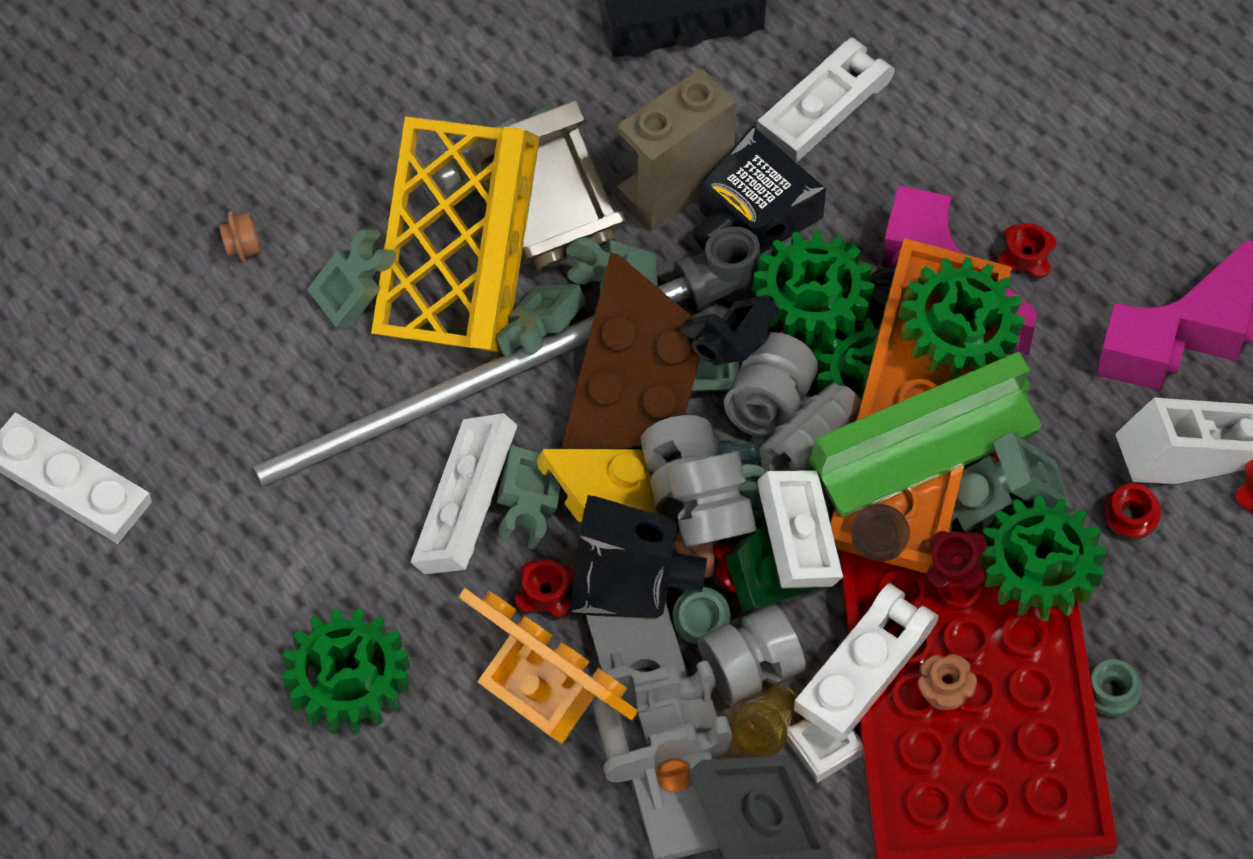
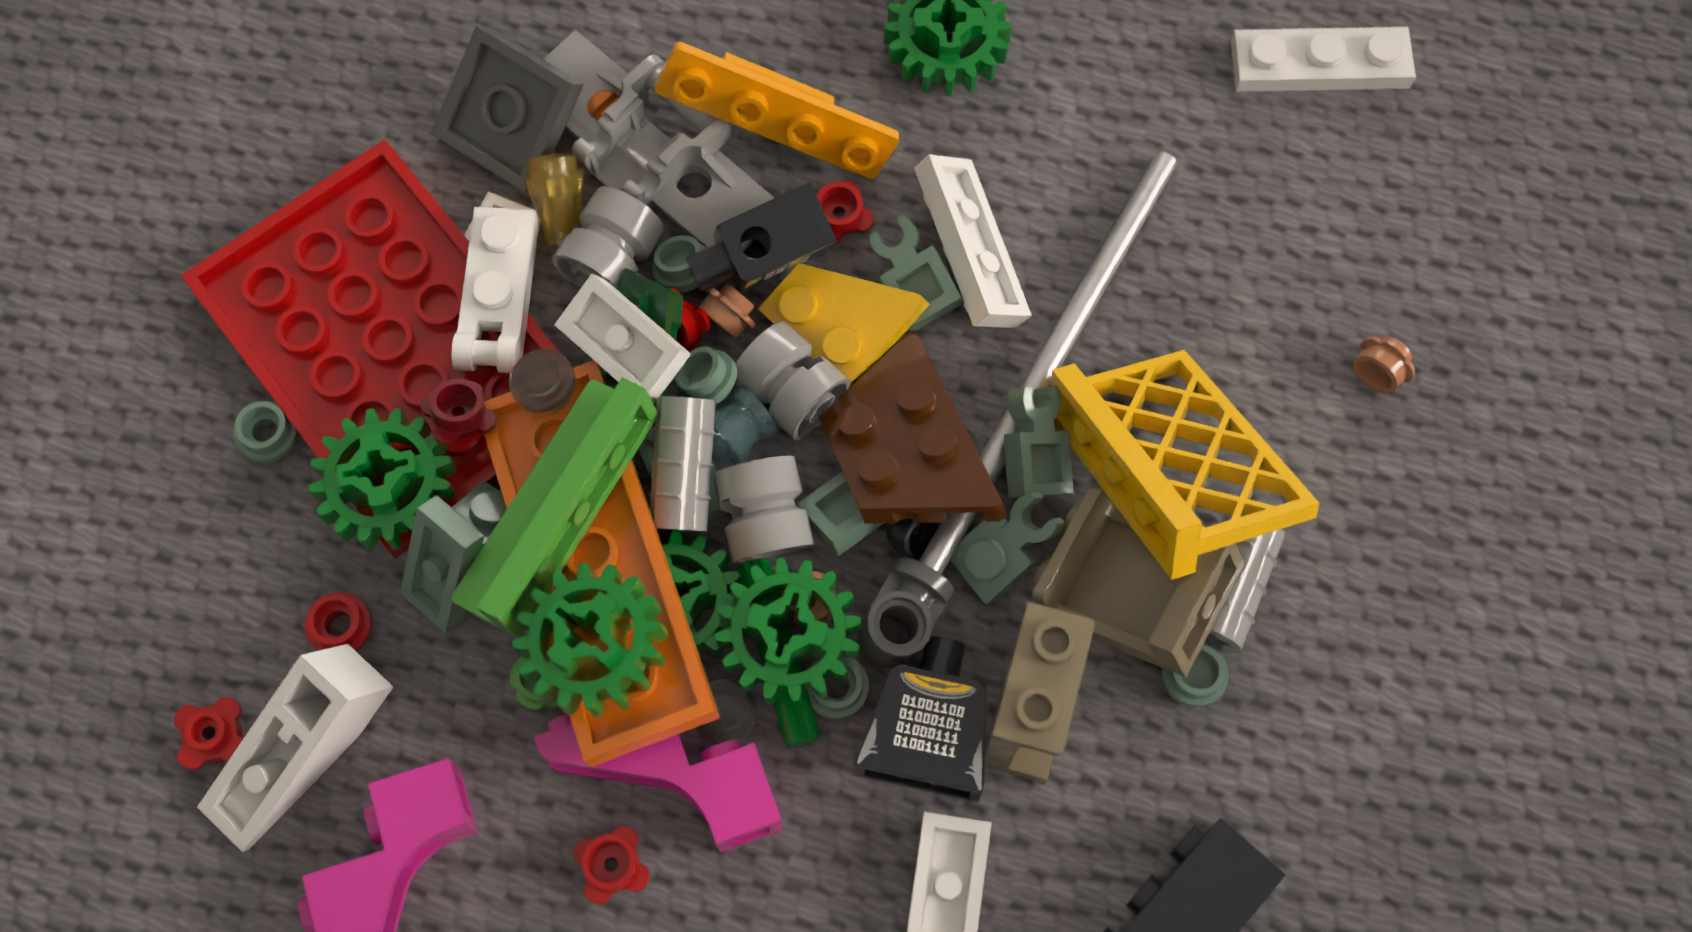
camera: 145 degrees right, 10 degrees up
(346, 280) = (1242, 370): sand green plate -> none
(711, 498) = (722, 310): light grey wheel -> none
(736, 334) = (823, 510): black bracket -> none
(947, 695) = (416, 328): nougat plate -> none

